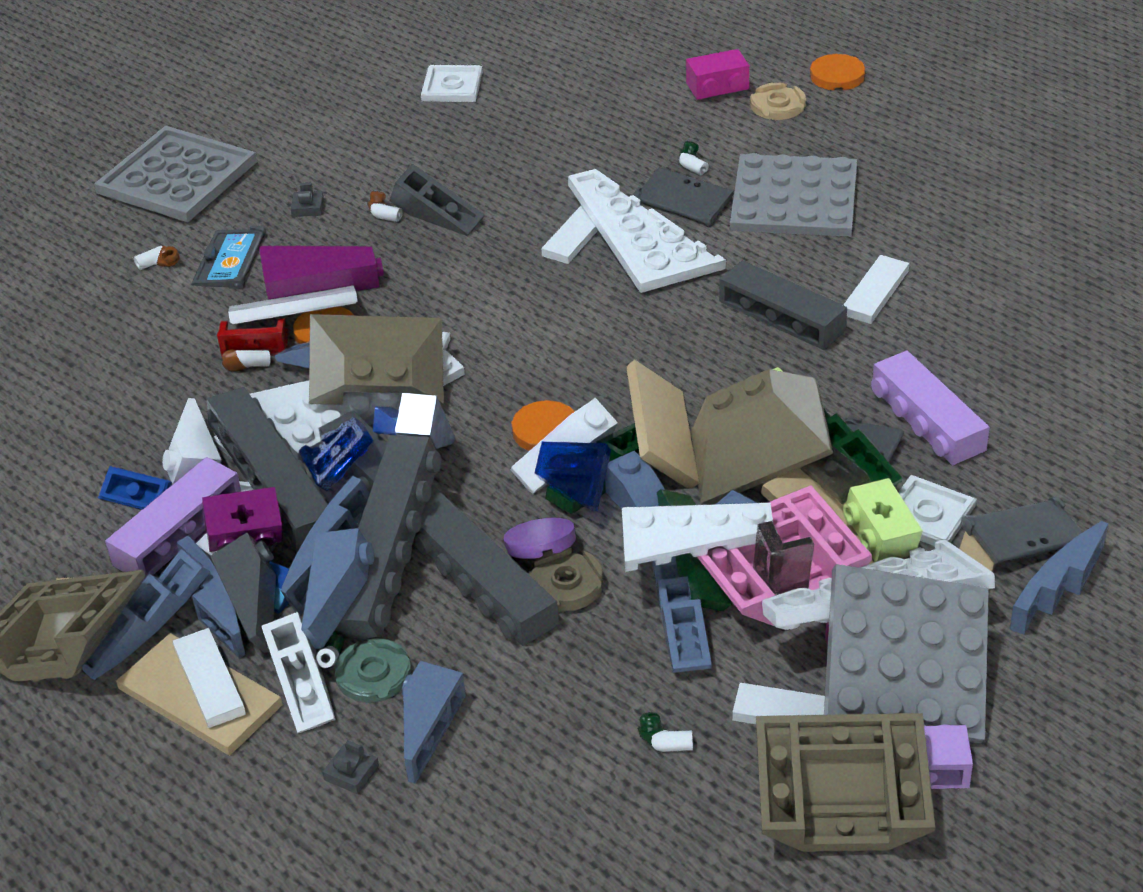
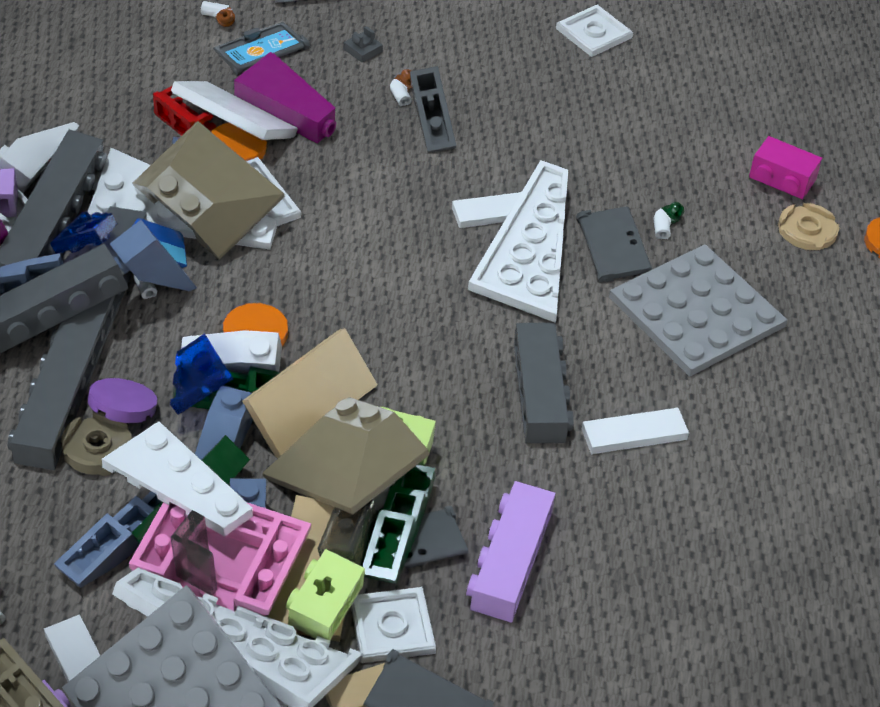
camera: 40 degrees right, 5 degrees up
(241, 359) = (154, 122): arm -> none

